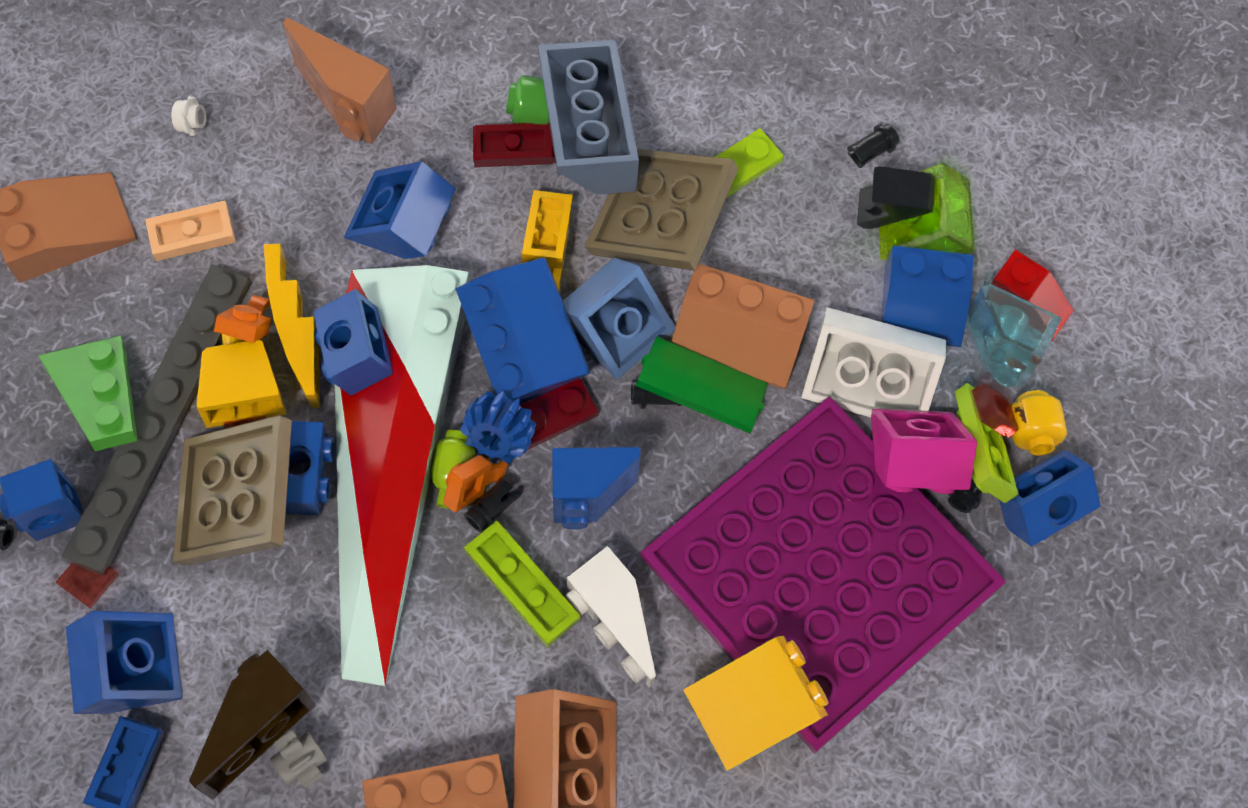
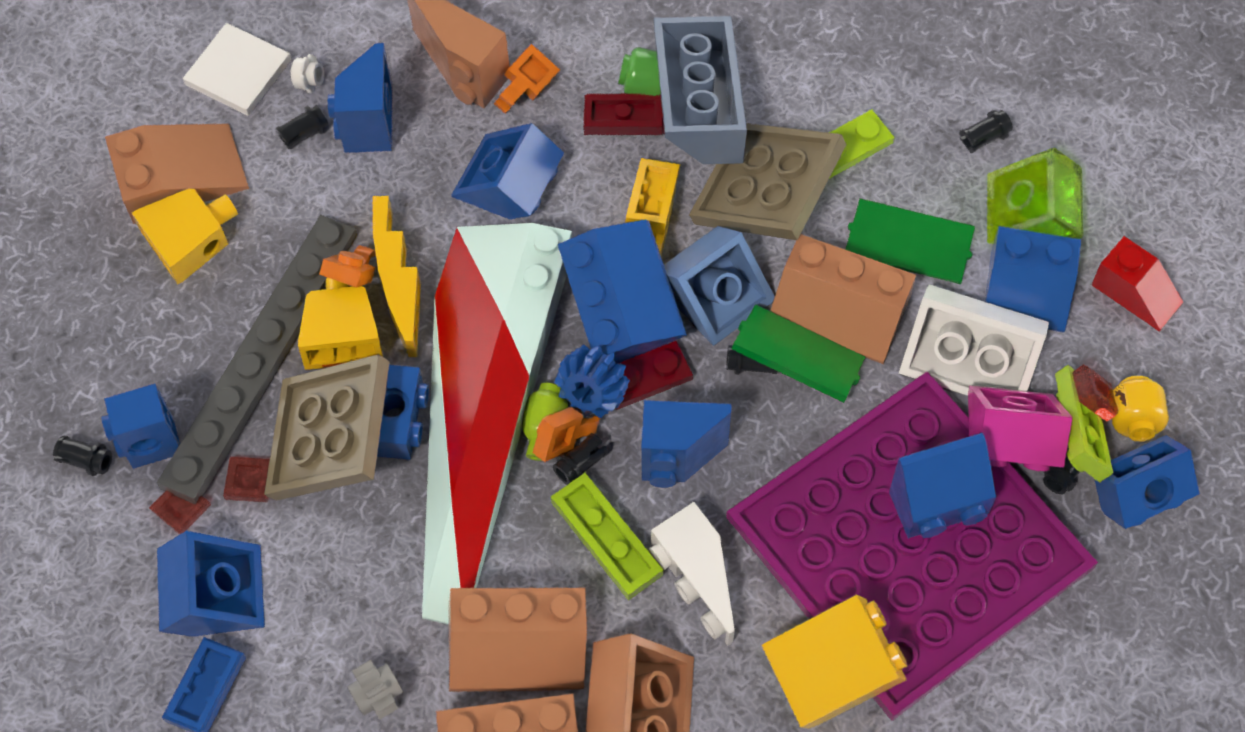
camera: 10 degrees right, 5 degrees down
(73, 288) = (185, 230): none -> yellow torso
(96, 389) = (201, 326): bright green wing -> none
(116, 114) = (237, 69): none -> white tile
(153, 546) = (246, 479): none -> clear red tile
(187, 172) = (302, 126): none -> black pin
(190, 230) = (301, 181): light nougat plate -> none
(248, 147) = (363, 103): none -> blue slope
(253, 715) = (336, 638): dark brown slope -> none
(352, 343) = (453, 293): blue brick -> none
(415, 108) = (528, 76): none -> orange plate
(438, 698) = (517, 639): none -> nougat slope
(804, 261) = (911, 240): none -> green piece
(854, 519) = (943, 487): none -> blue slope
(895, 197) = (1004, 180): black slope -> none
(1009, 334) = (1113, 318): clear light blue slope -> none

